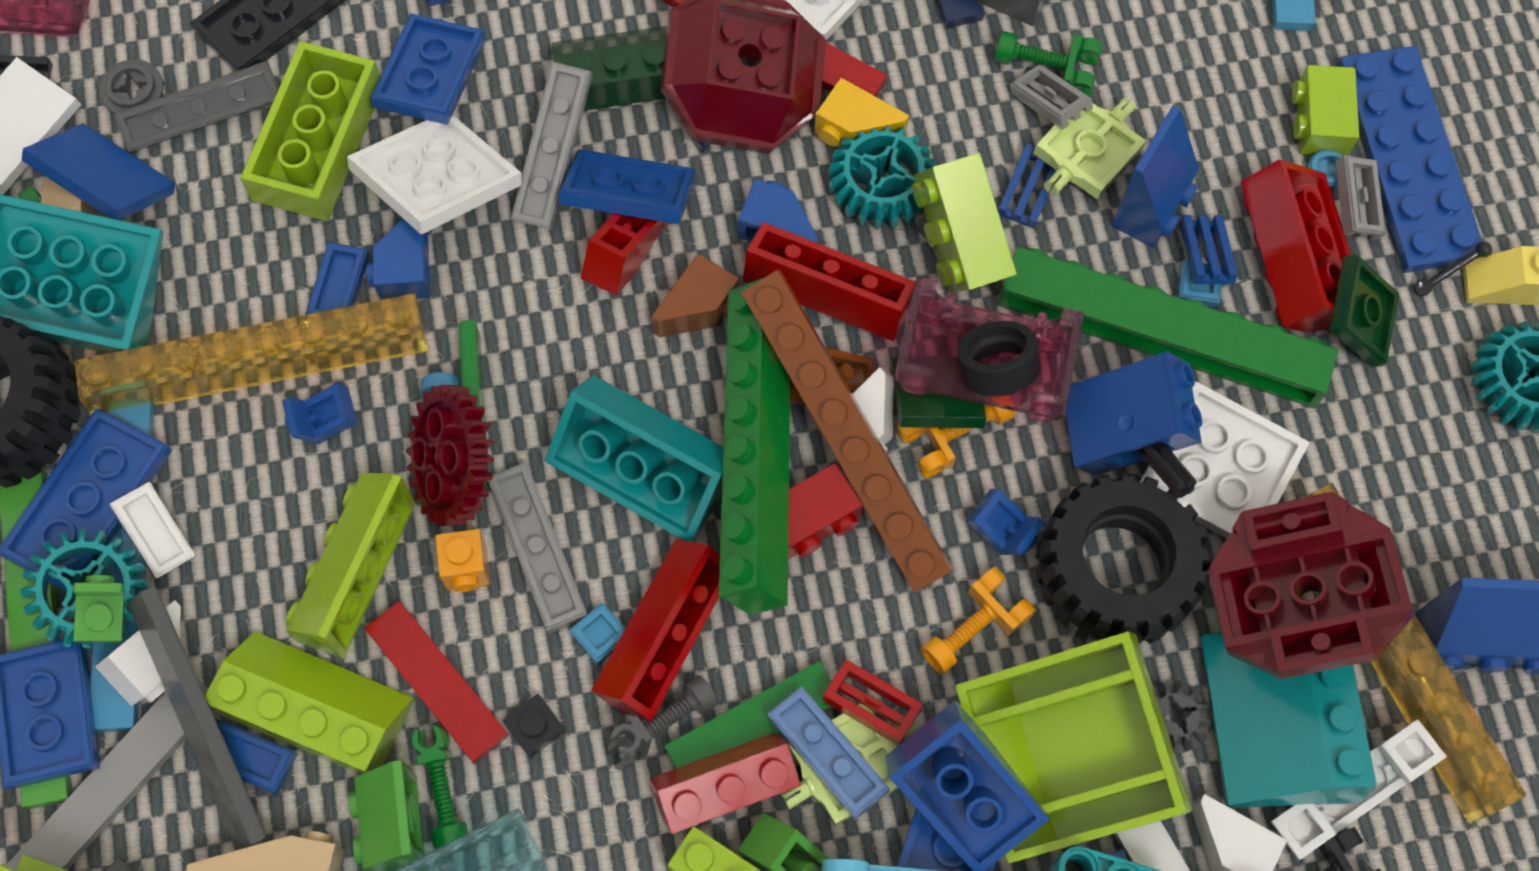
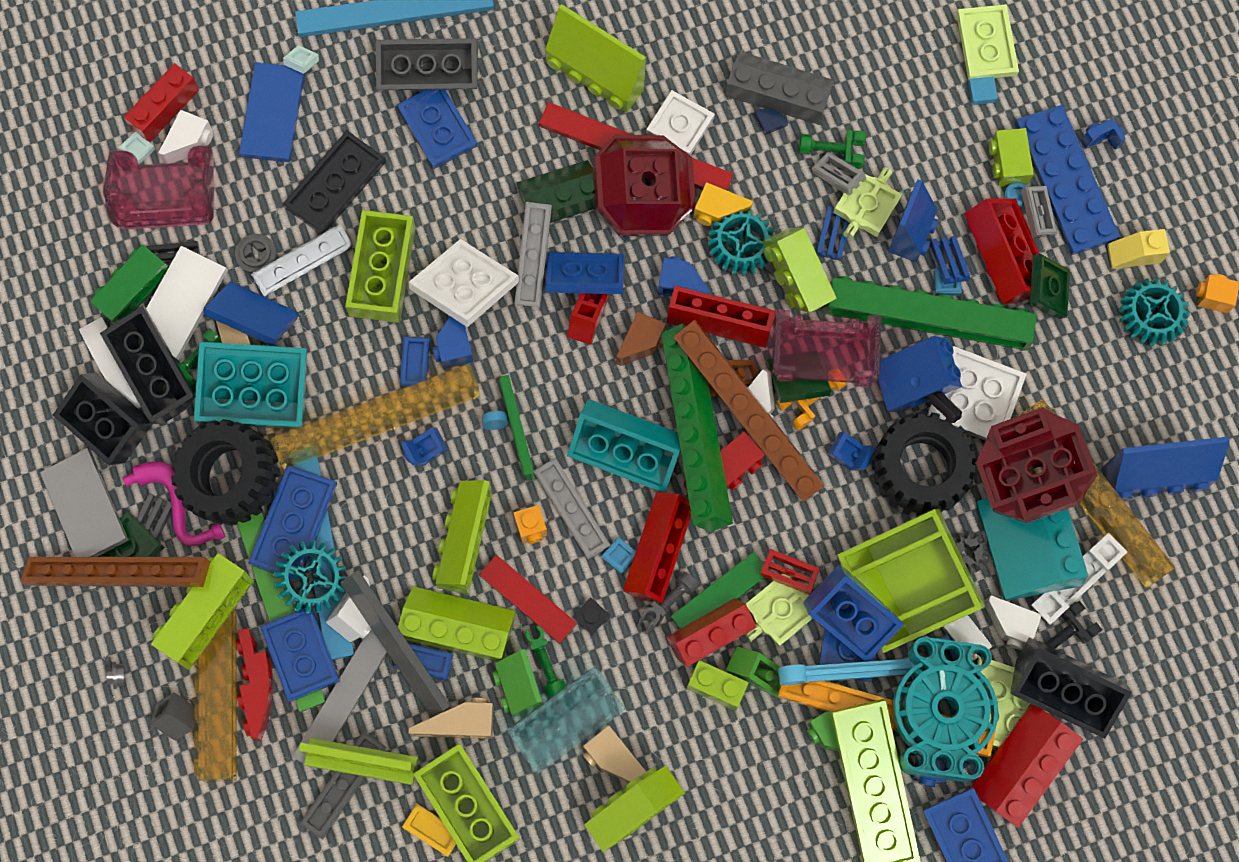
camera: 10 degrees left, 5 degrees up
(99, 610) = (326, 589): bright green bracket -> none
(152, 530) = (338, 535): white tile -> none
(428, 69) = (443, 212): blue tile -> none
(449, 455) = (512, 462): dark red gear -> none
(828, 753) = (768, 605): medium blue tile -> none
(941, 653) = (825, 536): light orange bar -> none
(1005, 377) = (838, 365): black tyre -> none
(1424, 286) = (1084, 263): black hinge -> none
(1478, 92) = (1108, 130): none -> blue bracket

